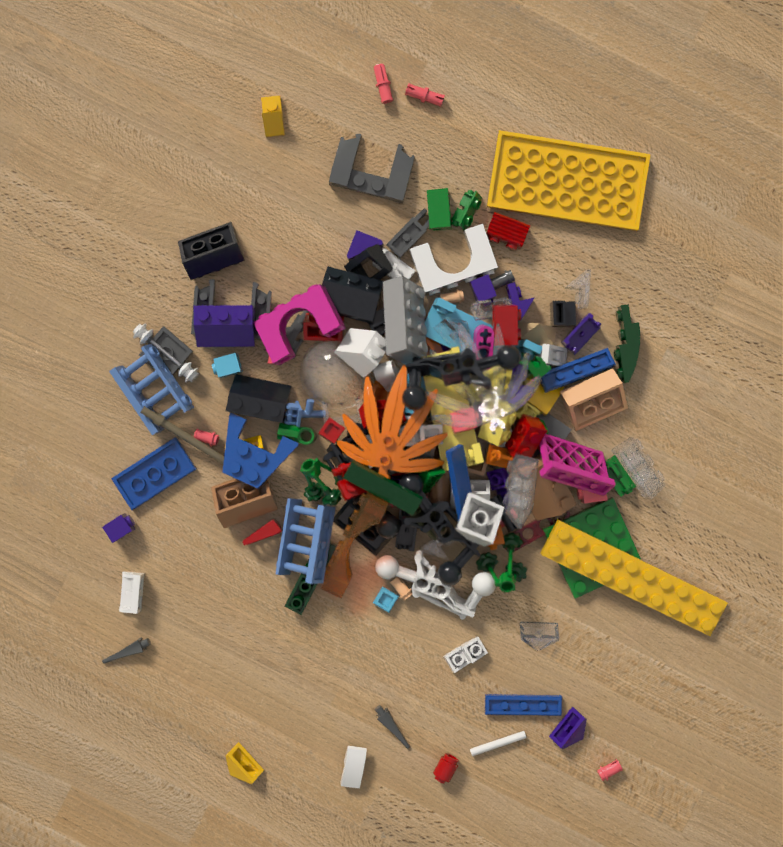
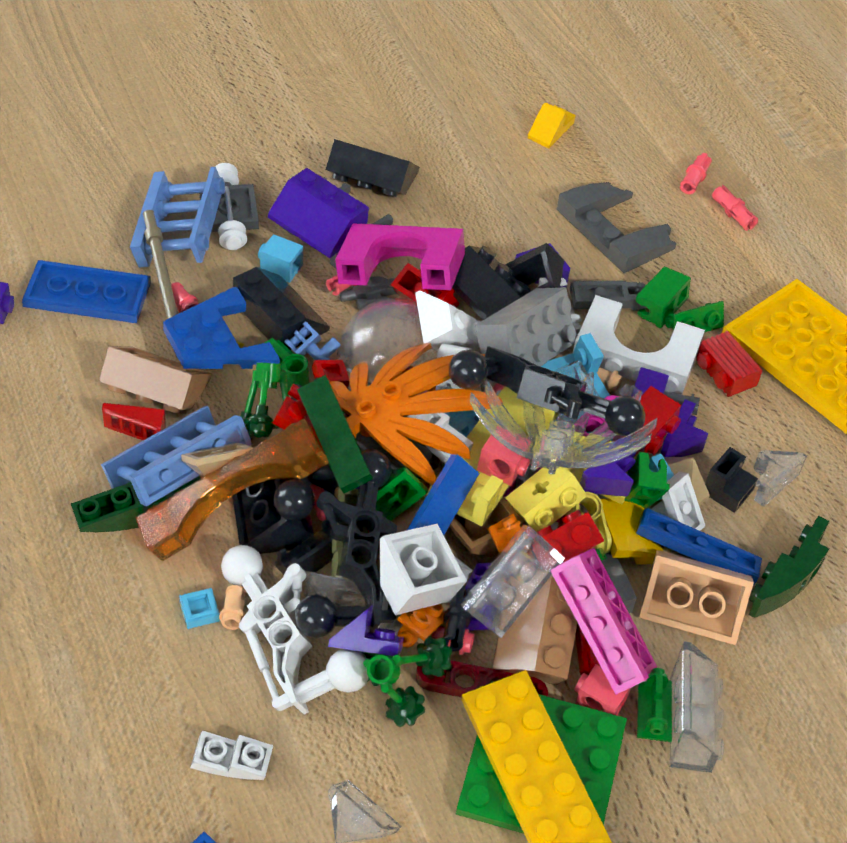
camera: 30 degrees right, 40 degrees down
(332, 535) = (212, 459): none -> tan slope
(386, 719) = (38, 749): dark grey piece -> none
(481, 569) = (358, 637): none -> slope
(581, 334) = (738, 516): dark purple hinge -> none

